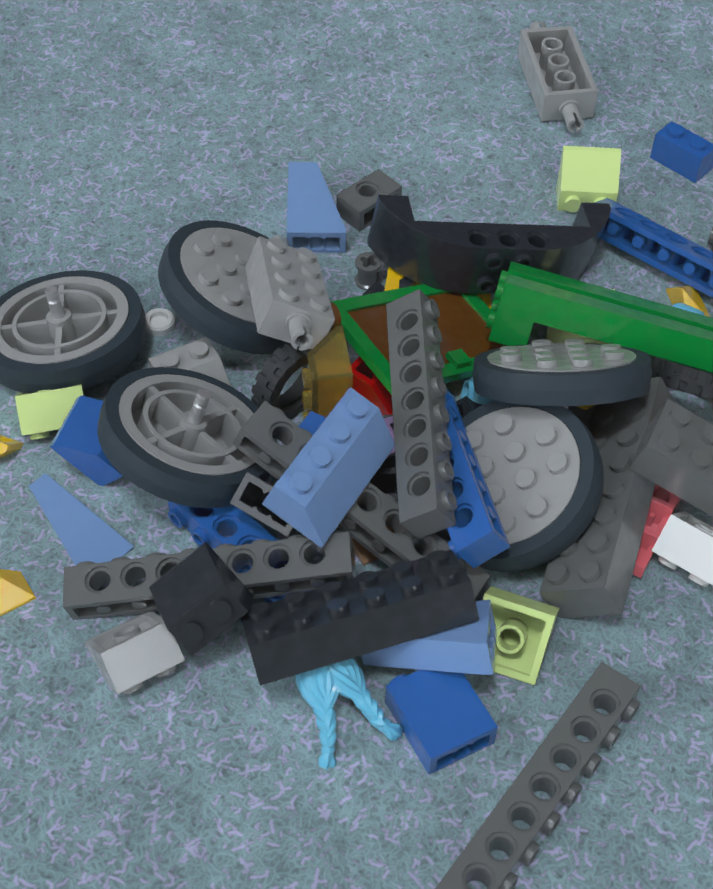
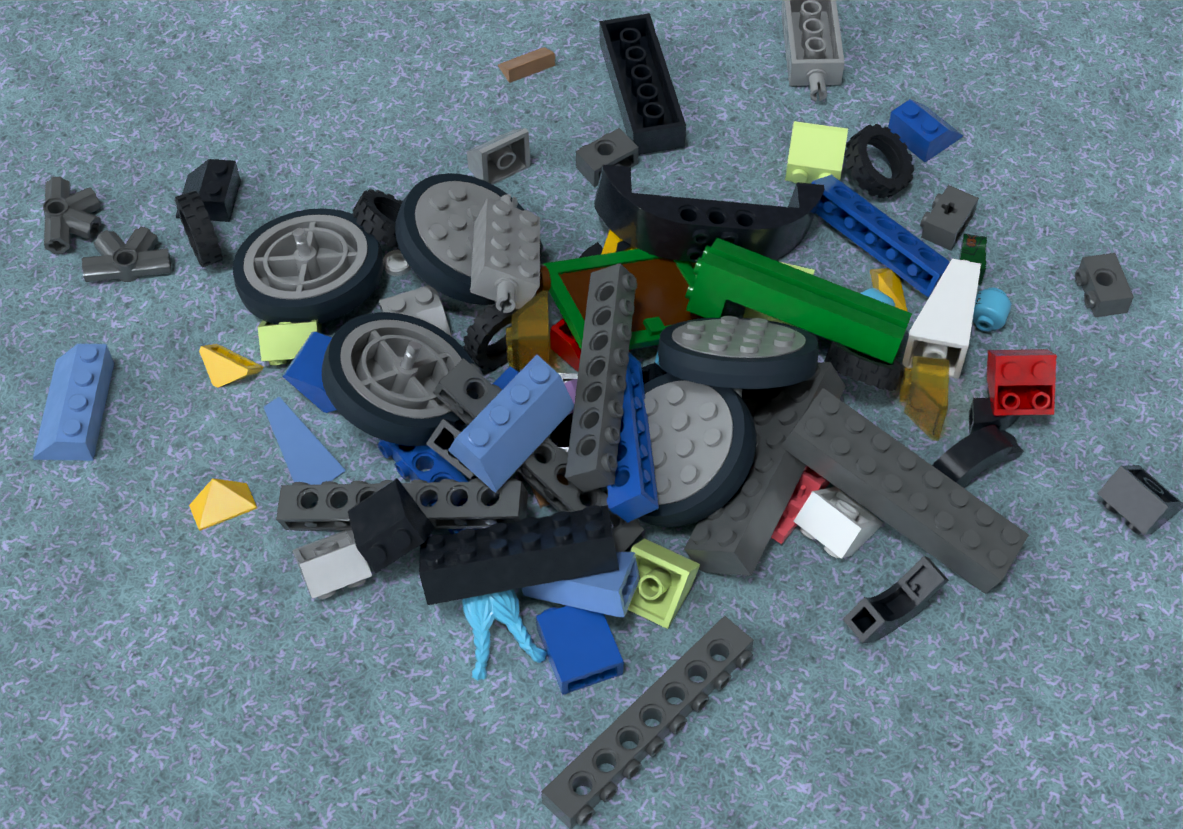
camera: 10 degrees right, 5 degrees up
(137, 272) = (378, 215): none -> black tyre
(258, 205) = (500, 156): none -> light grey slope
(267, 119) = (527, 64): none -> medium nougat slope
(311, 211) = (550, 167): medium blue slope -> none
(368, 269) = (593, 229): dark grey bush -> none
(393, 126) = (642, 83): none -> black brick
(644, 191) = (863, 170): none -> black tyre

